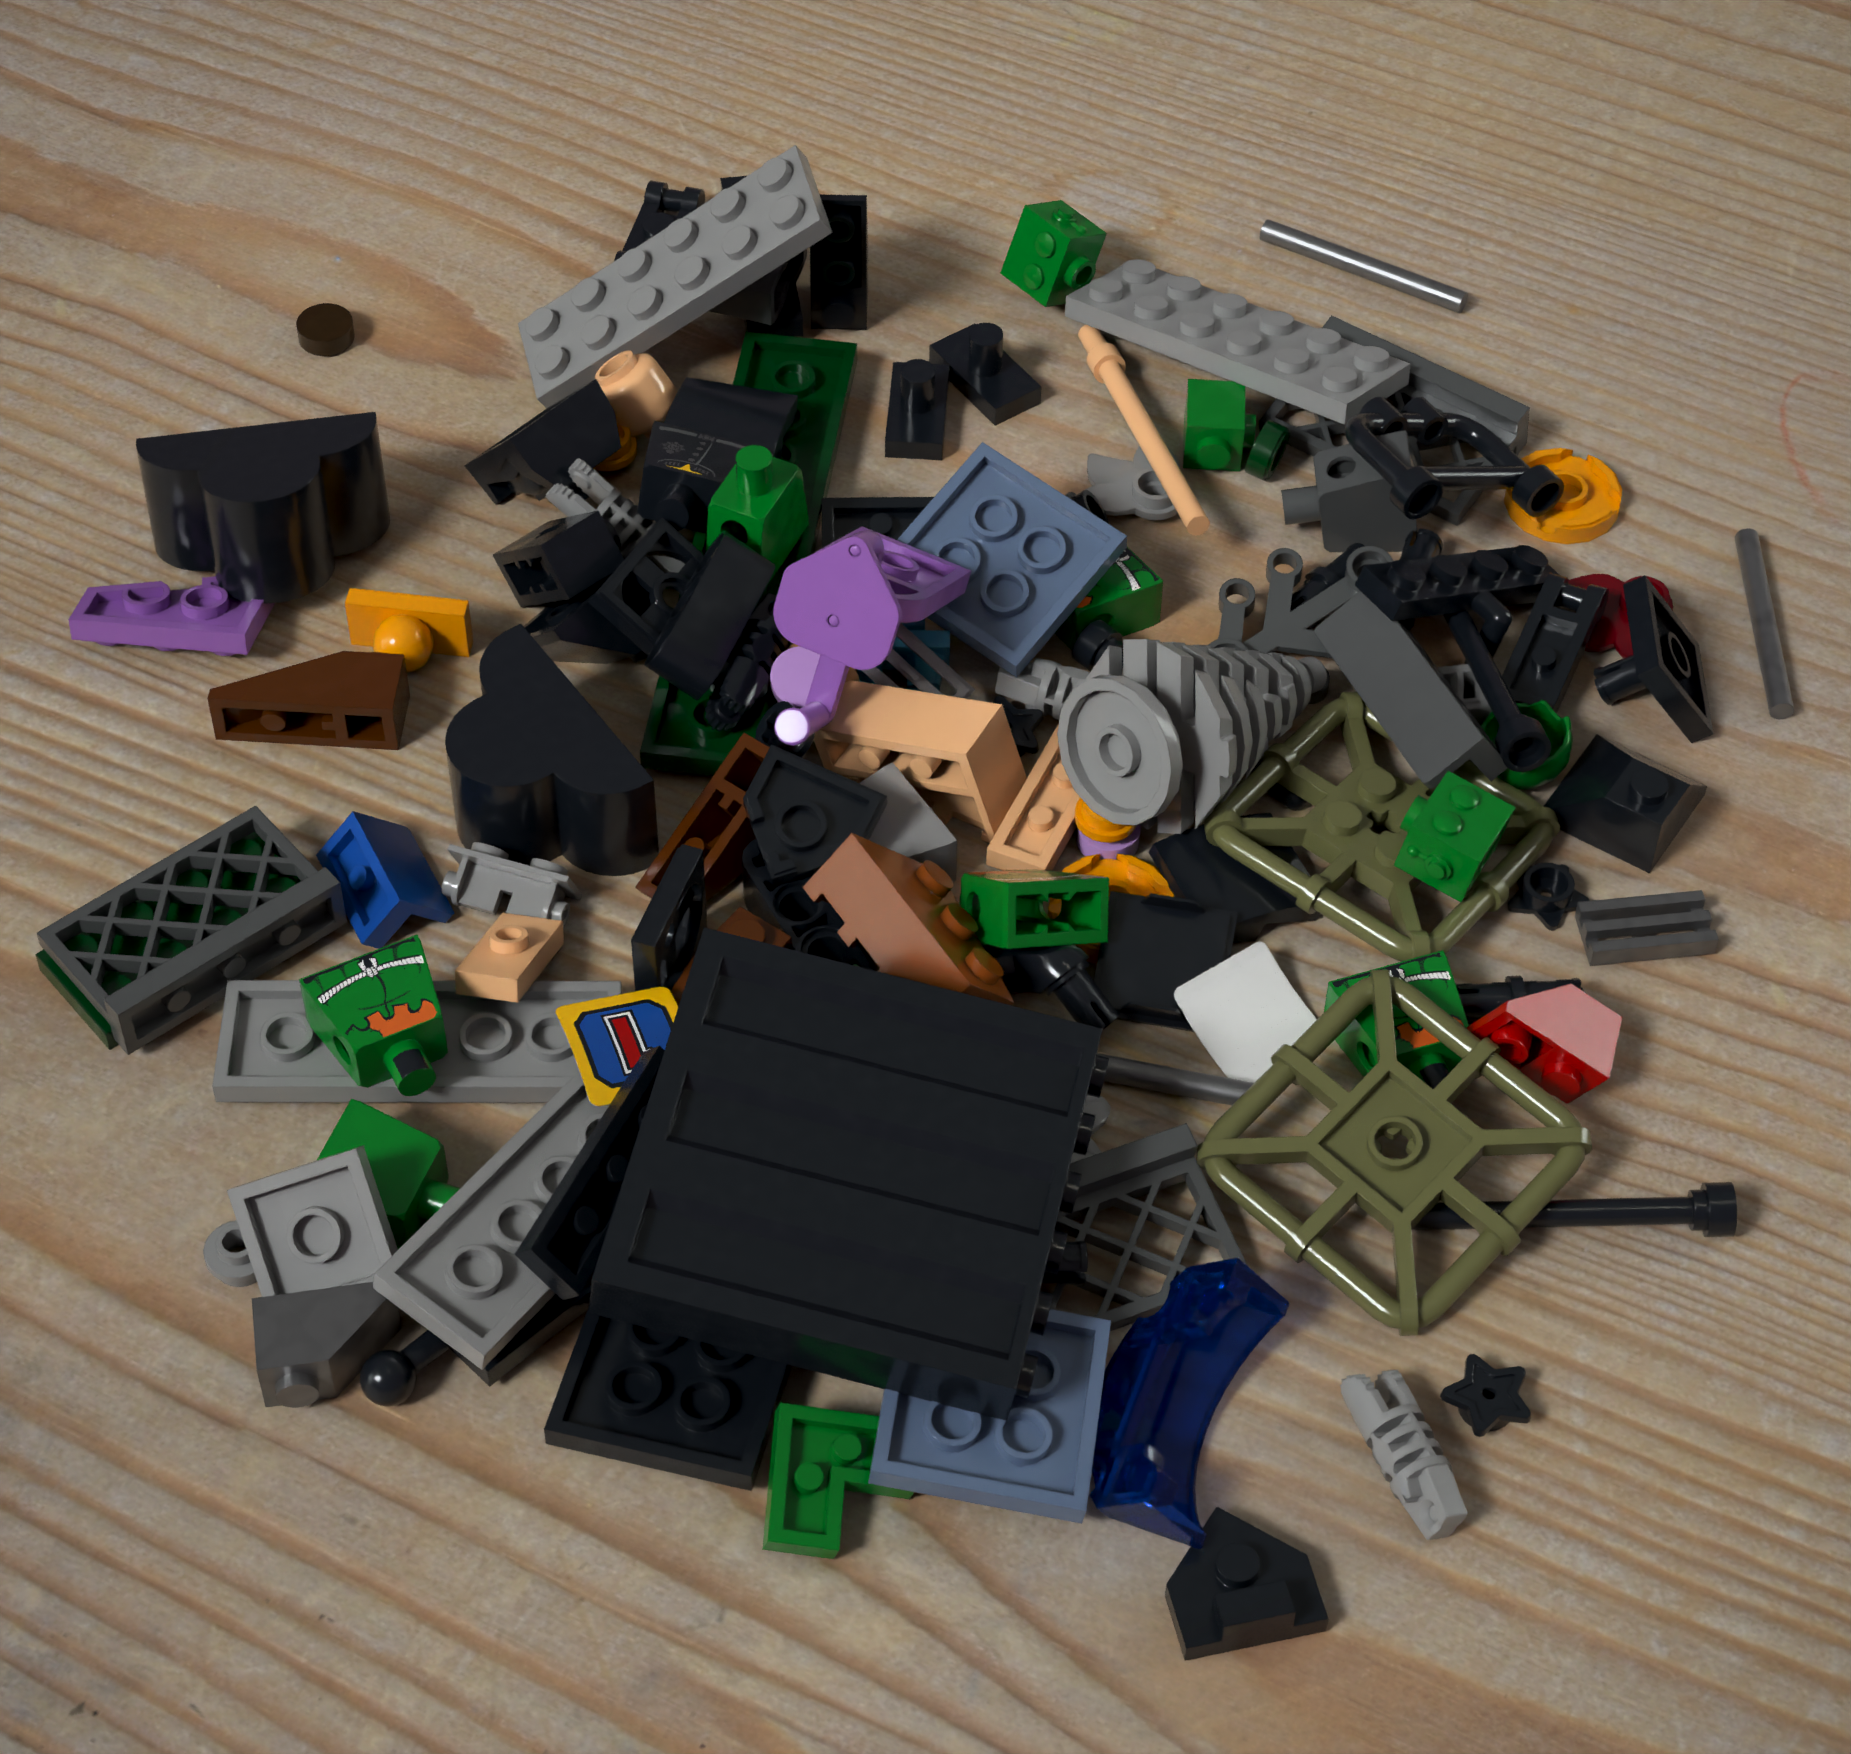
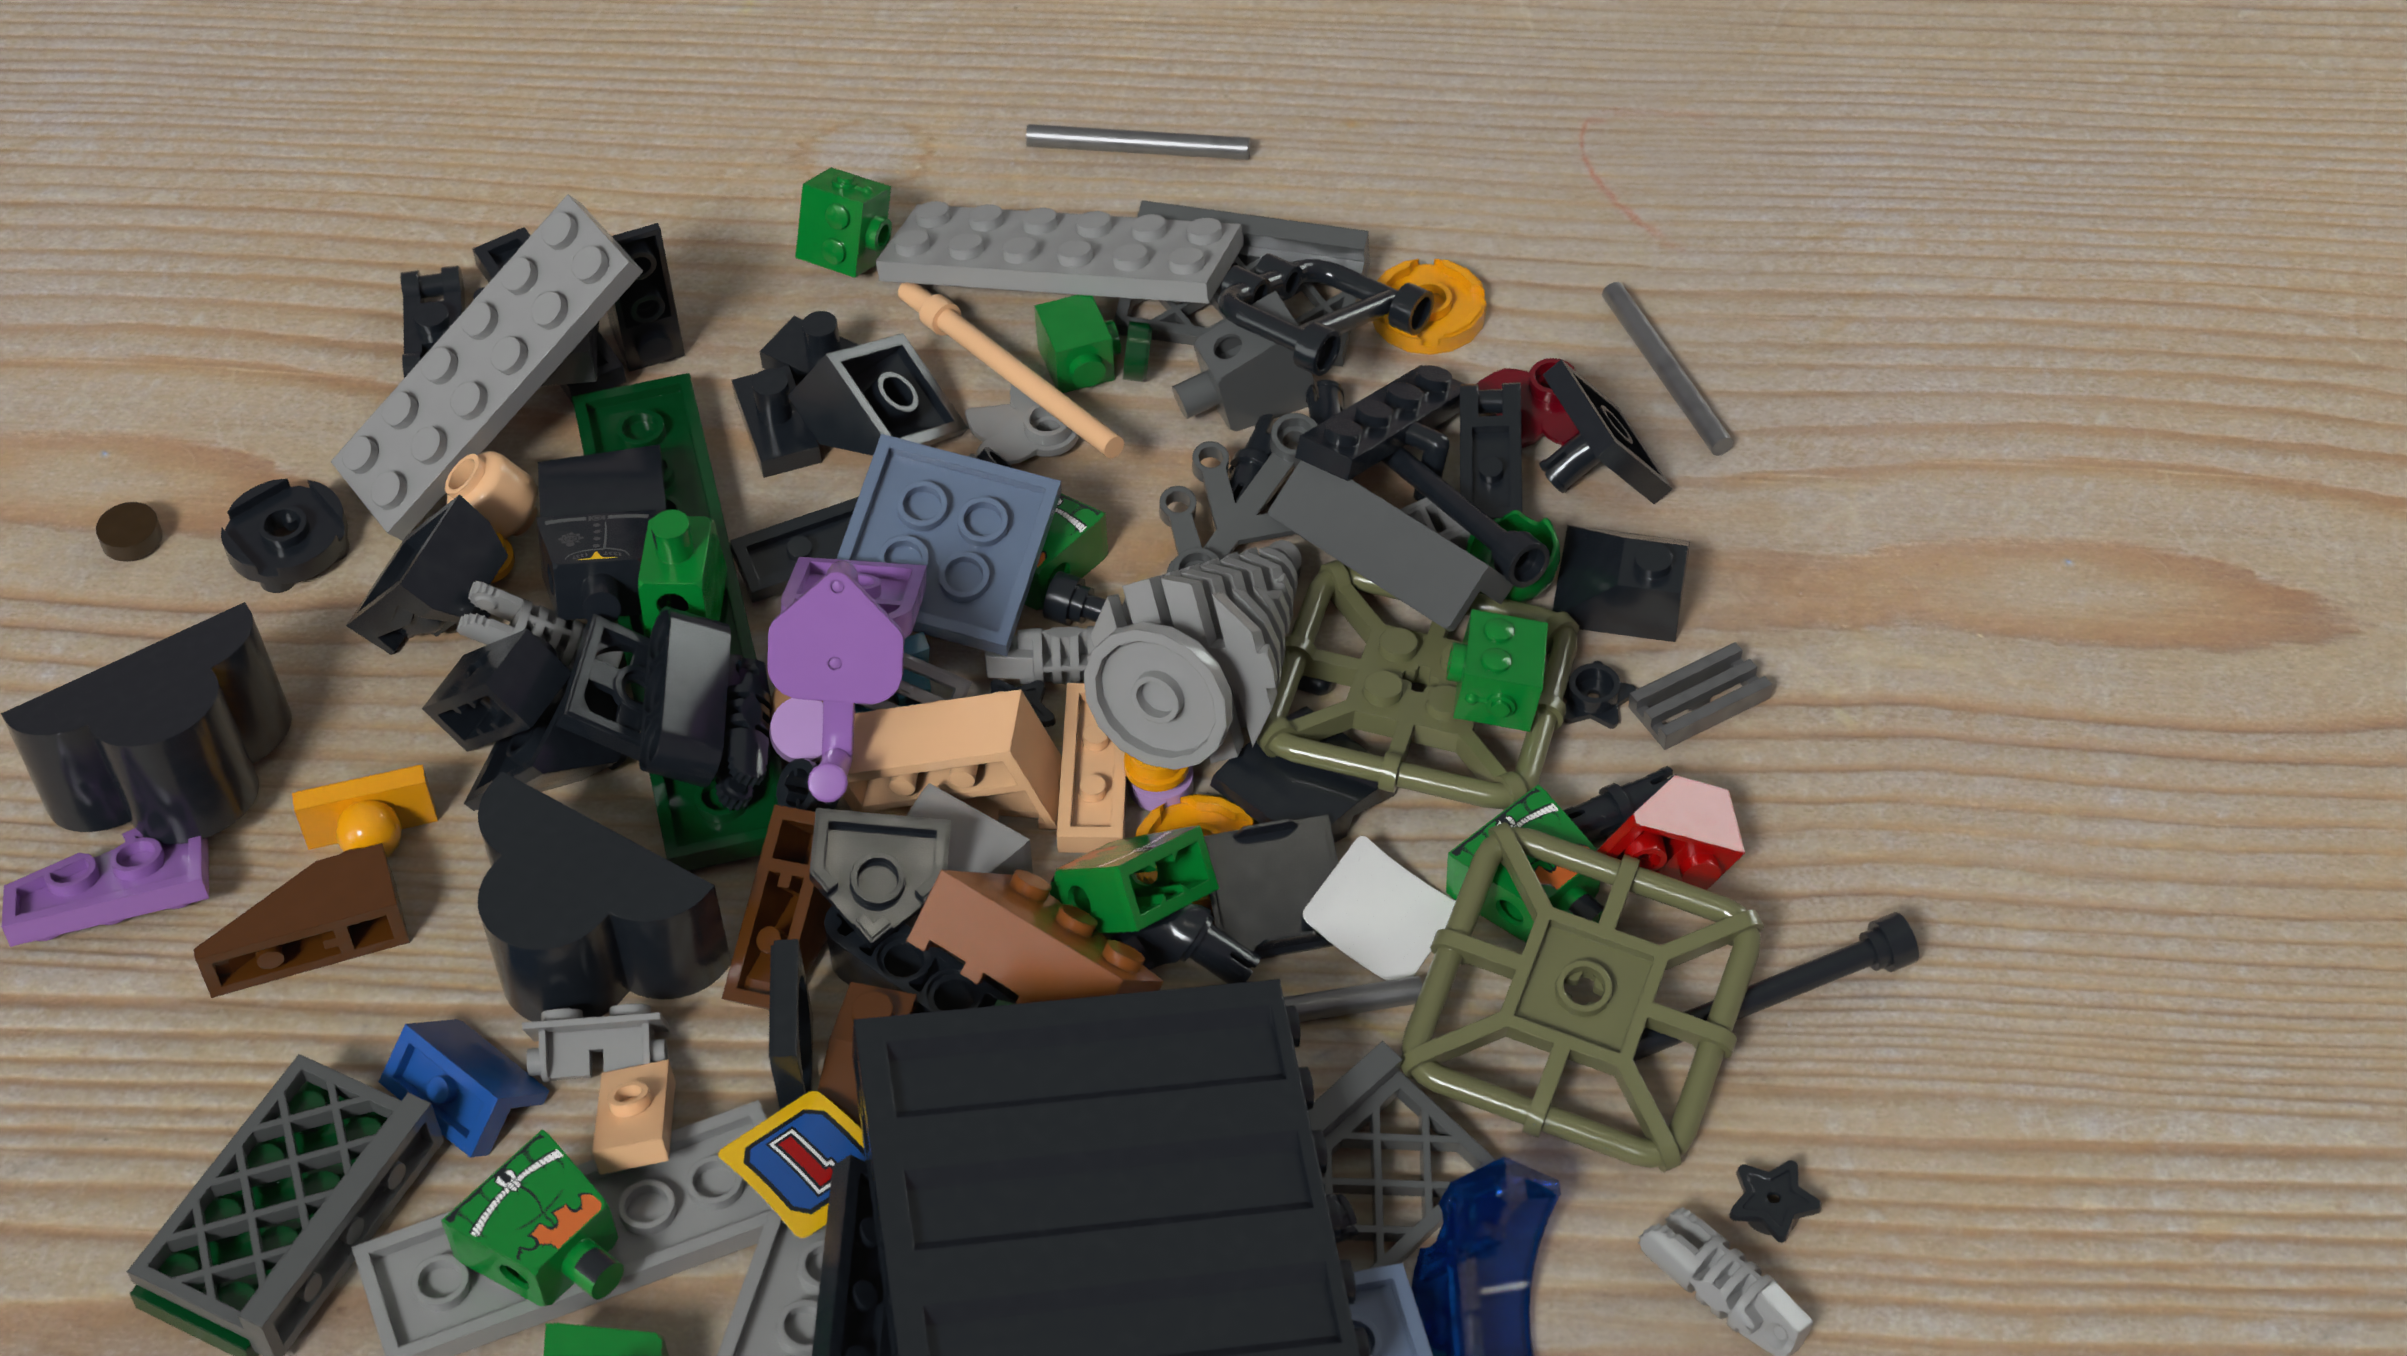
camera: 20 degrees left, 0 degrees up
(436, 394) = (288, 559): none -> black plate
(1014, 411) = (875, 392): none -> black slope

